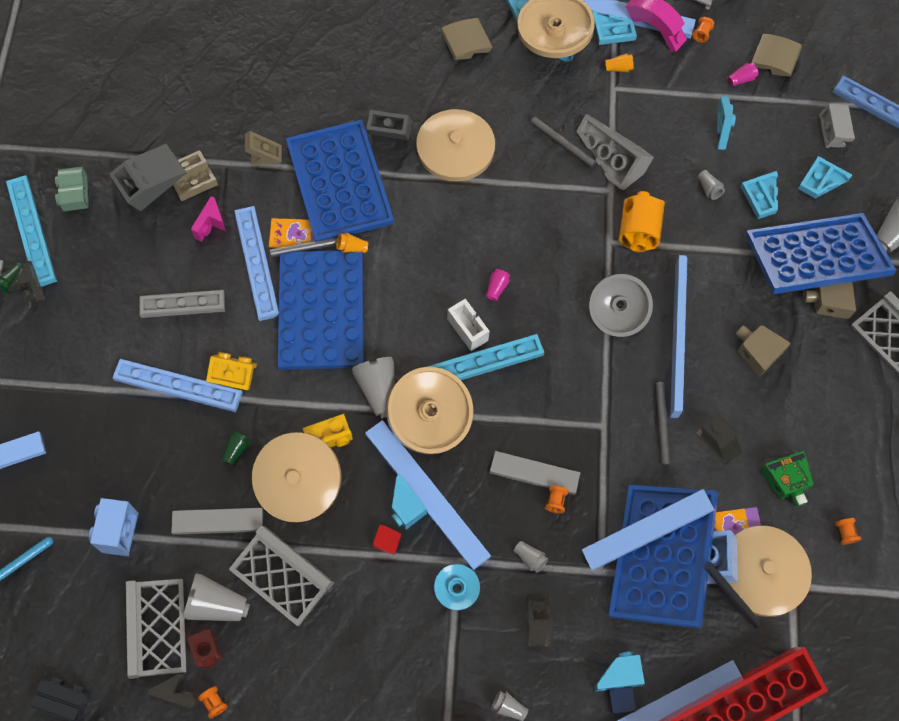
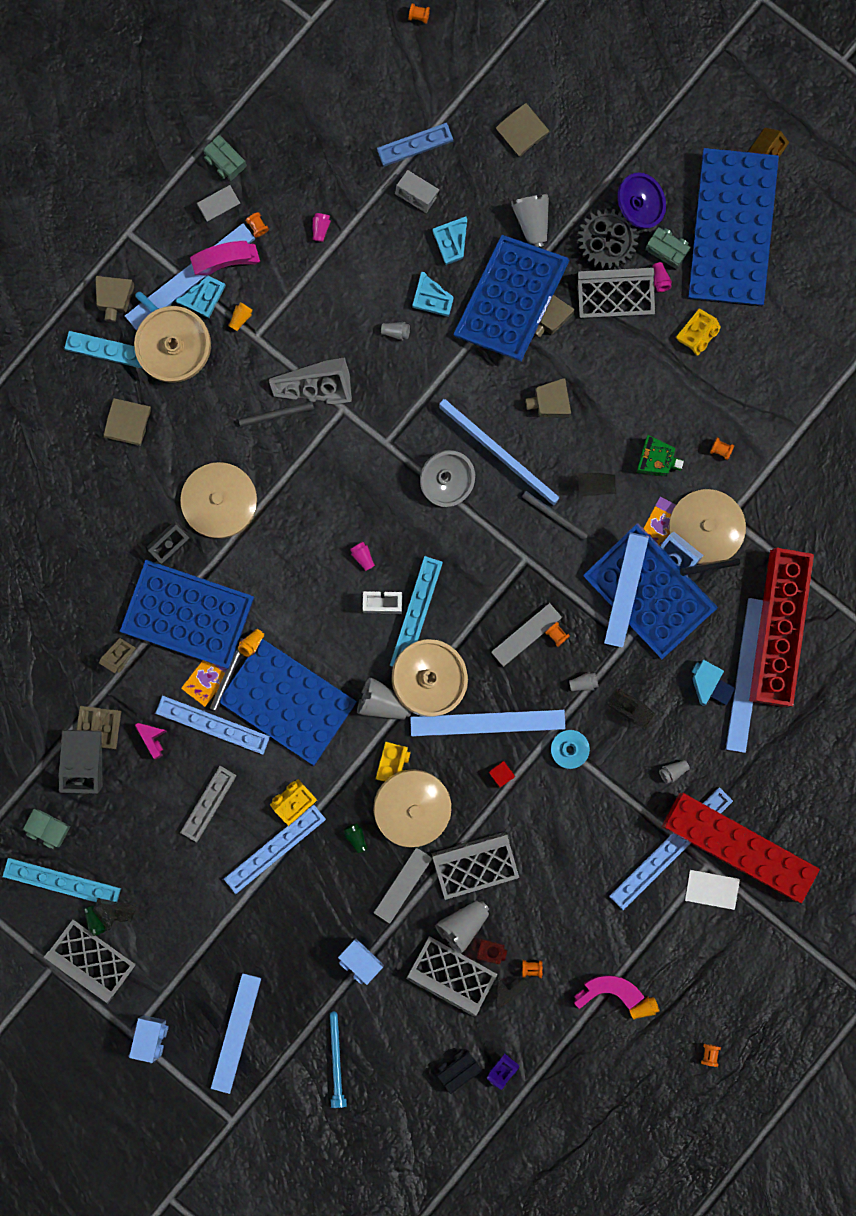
camera: 50 degrees left, 15 degrees up
(406, 505) = (486, 743): medium azure slope -> none
(641, 222) = (393, 411): light orange cylinder -> none
(725, 120) = (353, 276): medium azure wing -> none
(777, 54) = (321, 185): dark tan slope -> none

